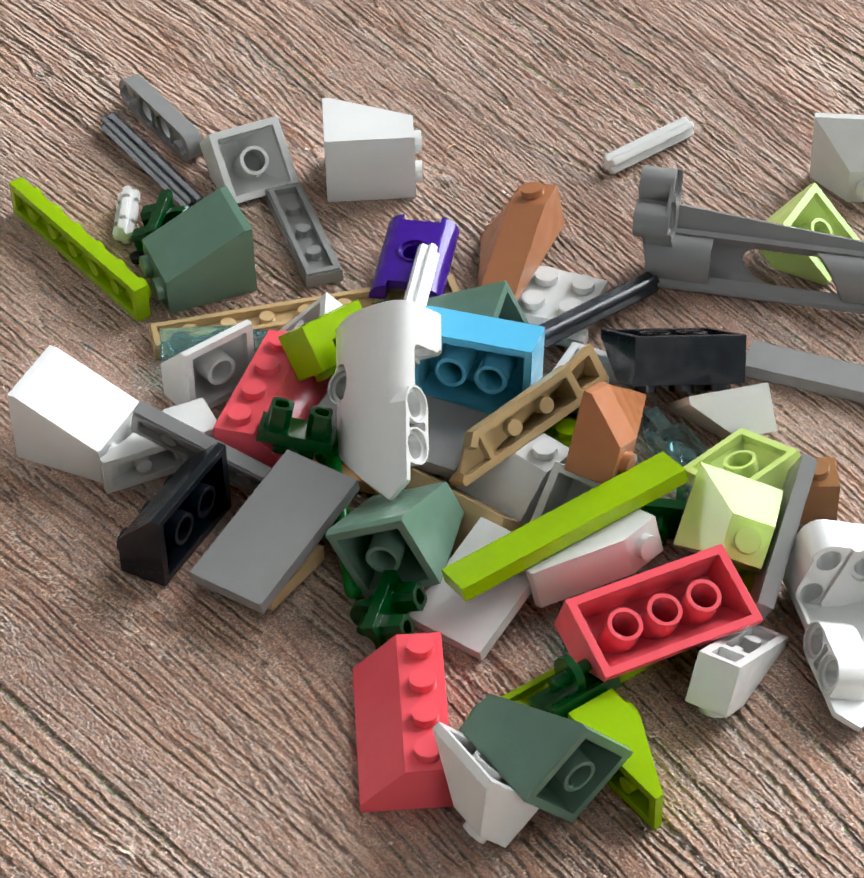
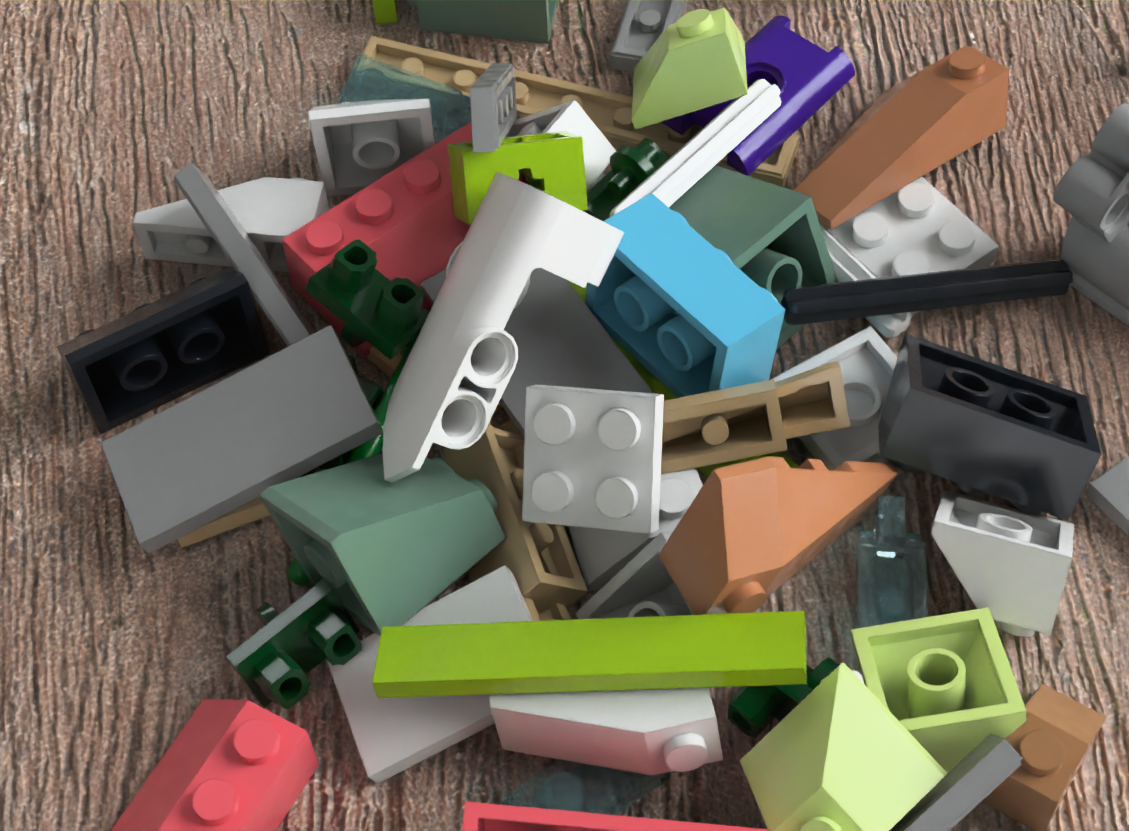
camera: 35 degrees right, 15 degrees up
(68, 415) = (154, 117): white slope -> none
(291, 306) = (493, 106): none -> light grey tile
(373, 255) = (690, 68): none -> yellowish green slope
(493, 441) = (592, 458): none -> white plate

